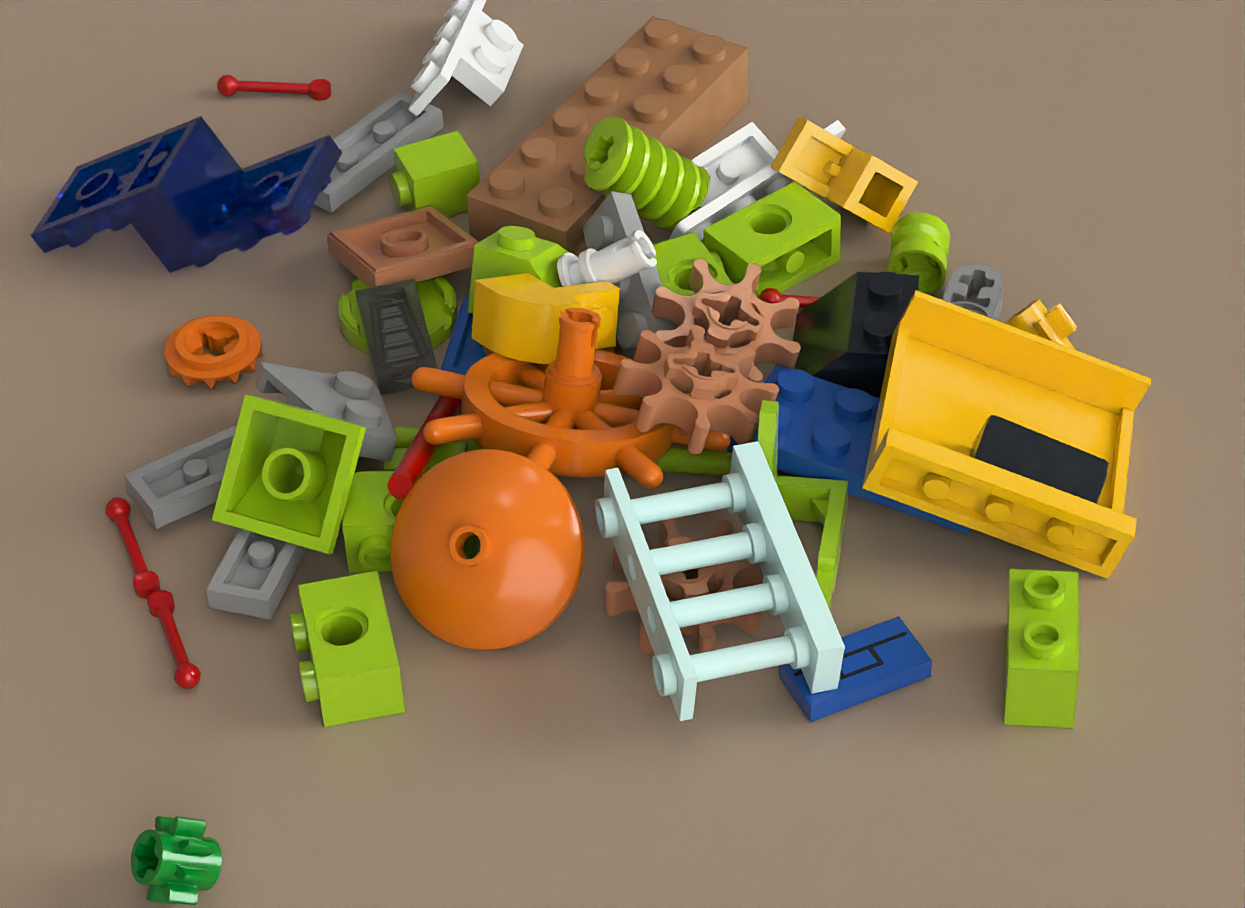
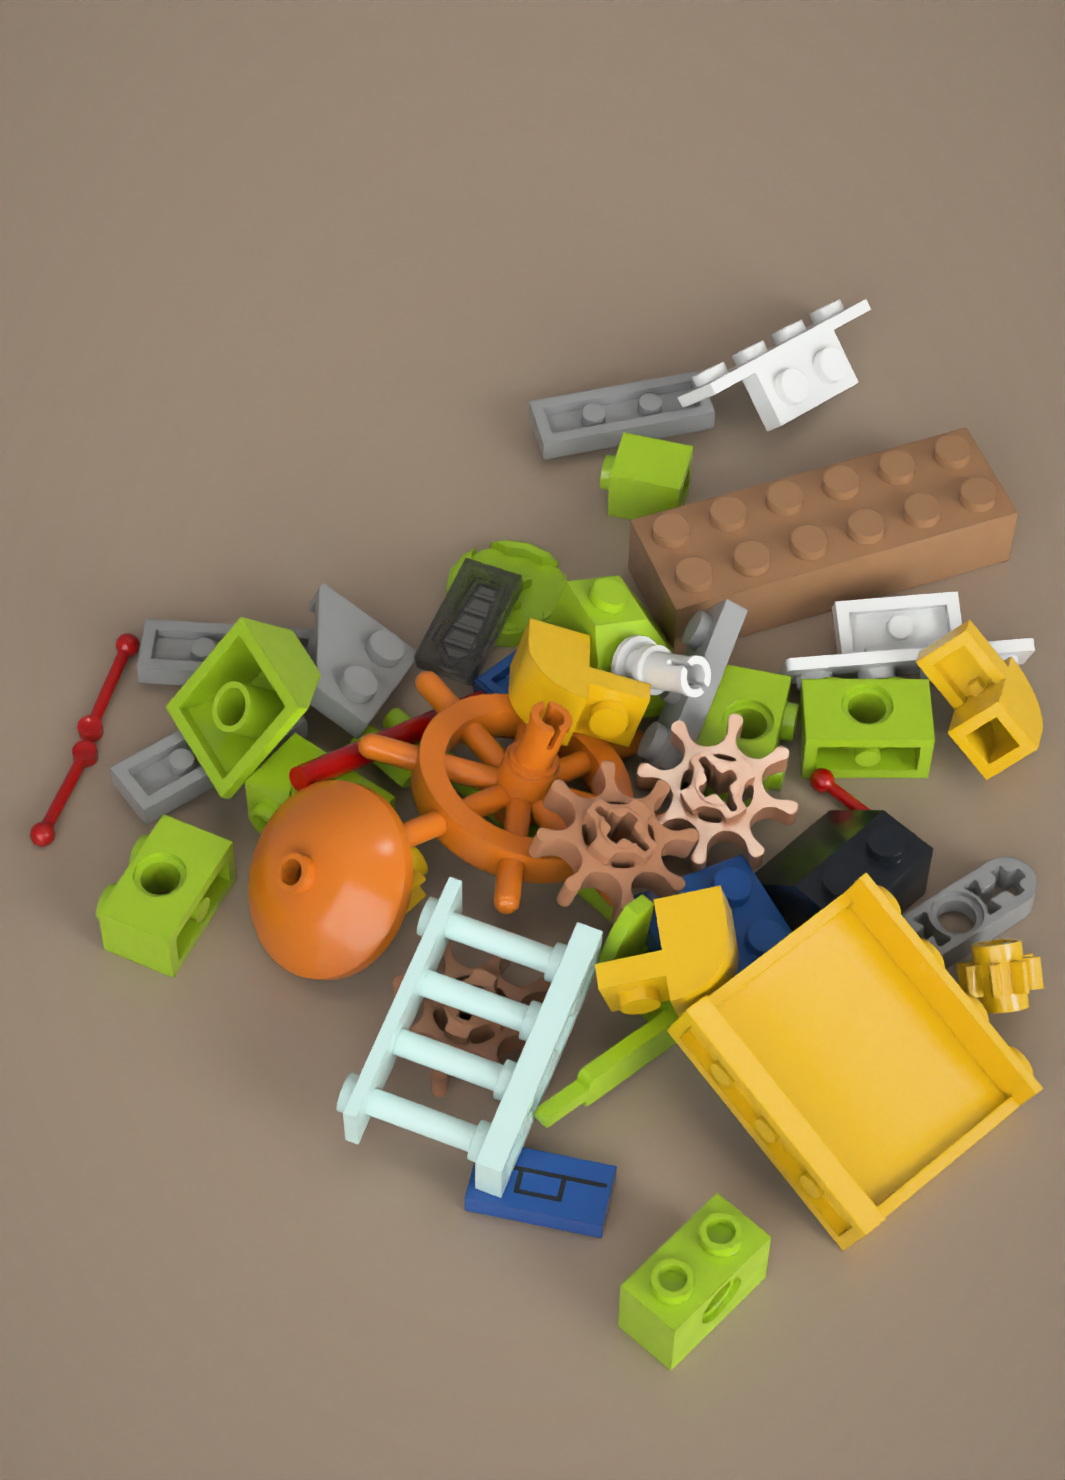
camera: 35 degrees right, 10 degrees up
(188, 195) = (421, 379): clear blue bracket -> none
(227, 336) = (306, 528): orange gear -> none
(317, 89) = (650, 323): red hinge -> none
(403, 247) = (555, 535): nougat tile -> none
(630, 162) = (785, 594): lime piece -> none
(832, 433) = (694, 959): none -> yellow brick
(920, 248) = (990, 814): lime wheel -> none
(1040, 458) = (843, 1111): black slope -> none

